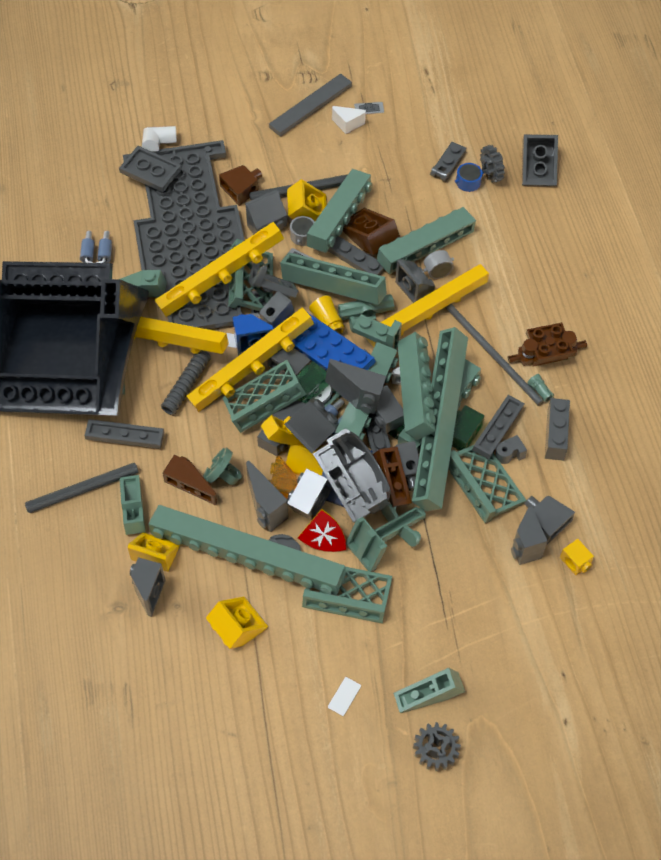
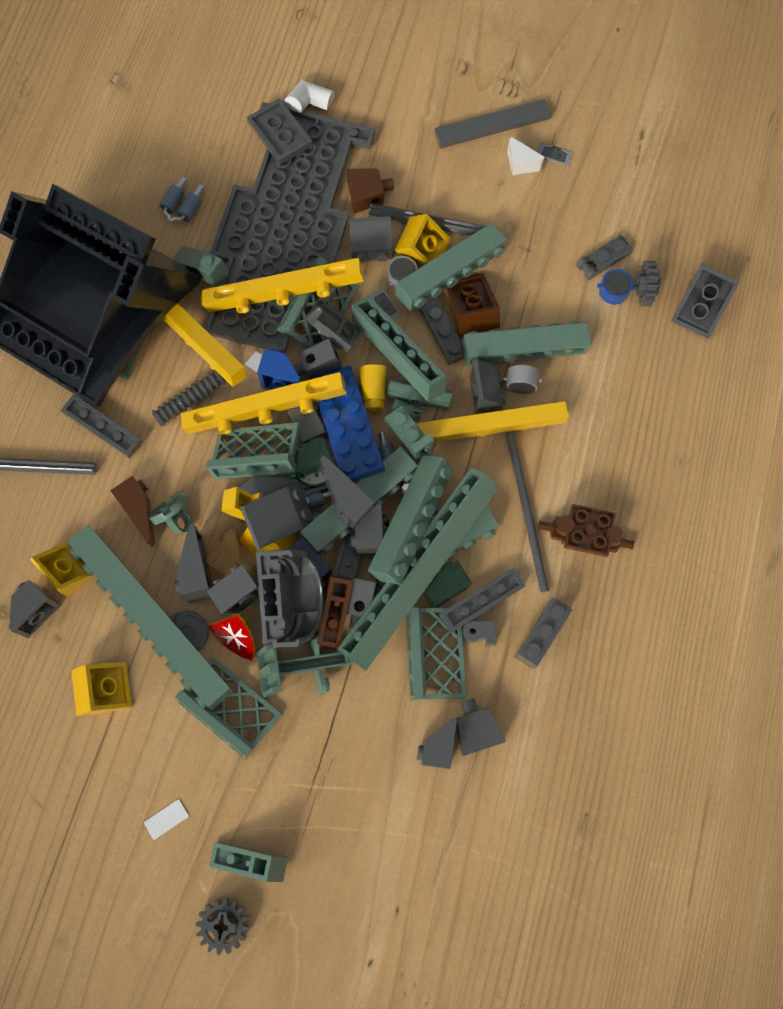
camera: 25 degrees right, 15 degrees up
(132, 505) = (68, 508): sand green slope -> none
(538, 384) = (553, 569): sand green pin -> none
(577, 557) = (482, 791): yellow brick -> none

